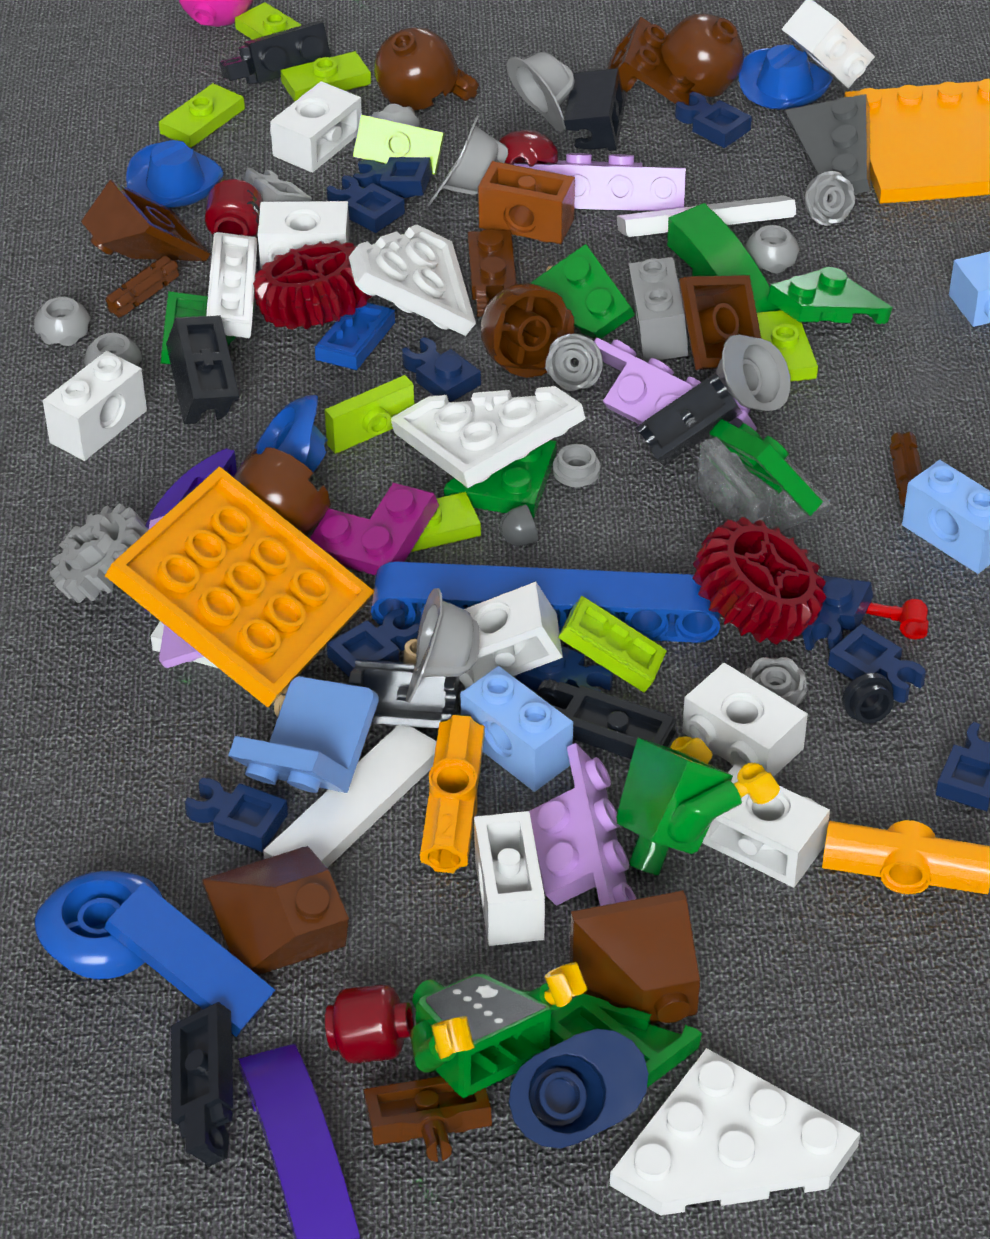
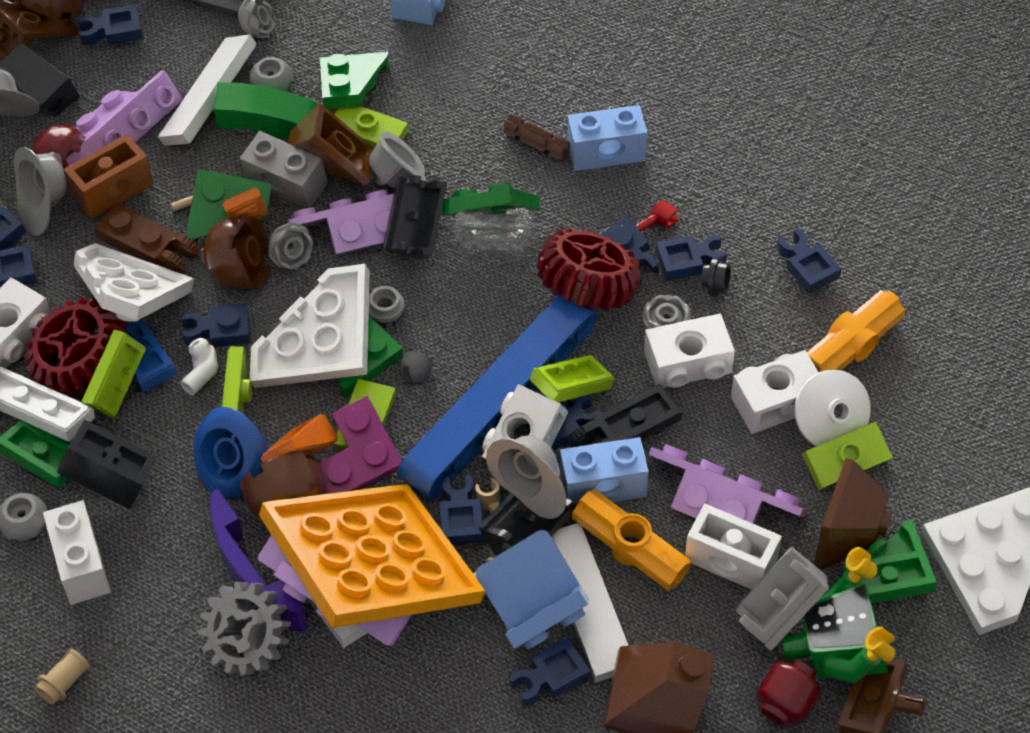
camera: 55 degrees left, 10 degrees up
(302, 319) = (114, 374): none -> lime plate
(346, 482) = (307, 438): none -> orange slope
(394, 368) = (204, 365): none -> white arm
(479, 944) = (782, 598): none -> light grey hinge
(578, 1088) = (924, 607): dark blue piece -> none
(579, 293) = (246, 202): none -> orange slope
(677, 795) = (742, 420): green torso -> none
(741, 932) = (862, 445): none -> lime plate
(806, 888) = (817, 403): none -> white dish

